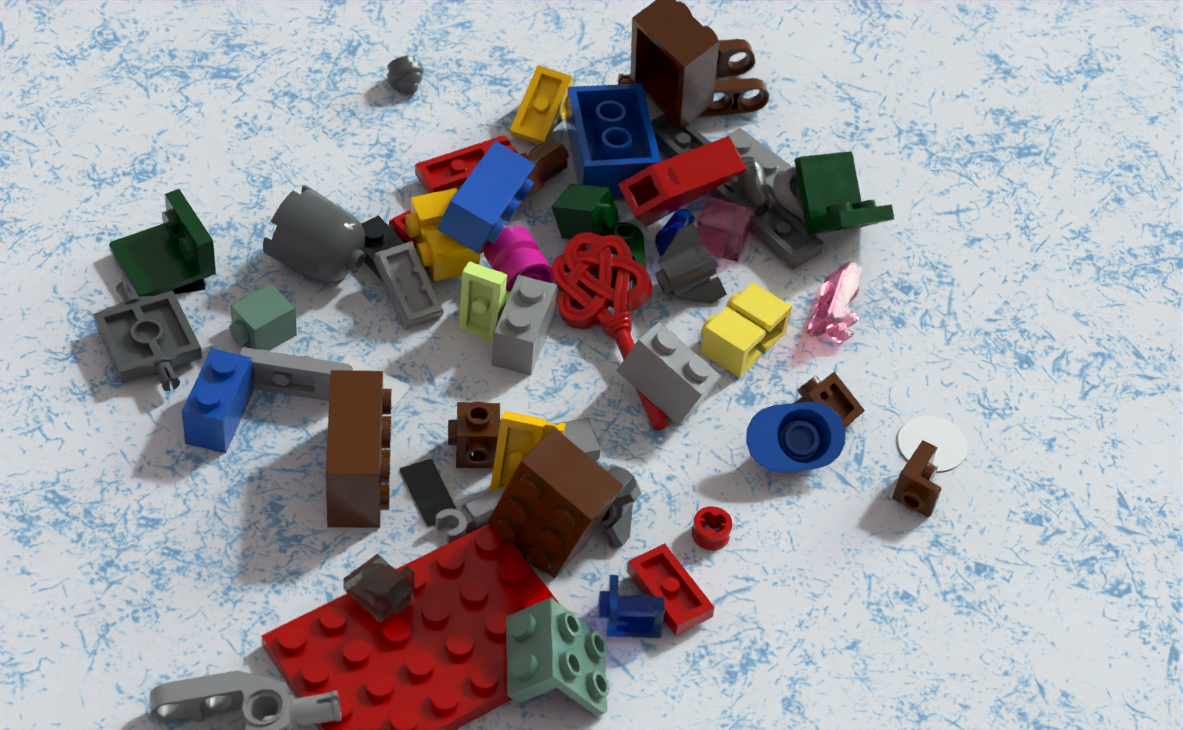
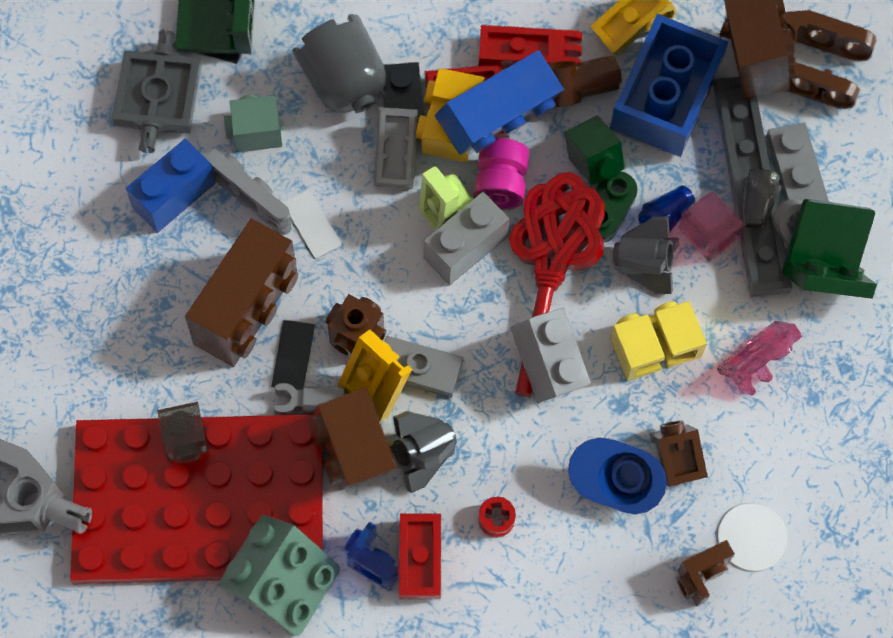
camera: 35 degrees right, 20 degrees up
(681, 180) = (694, 164): red slope -> none

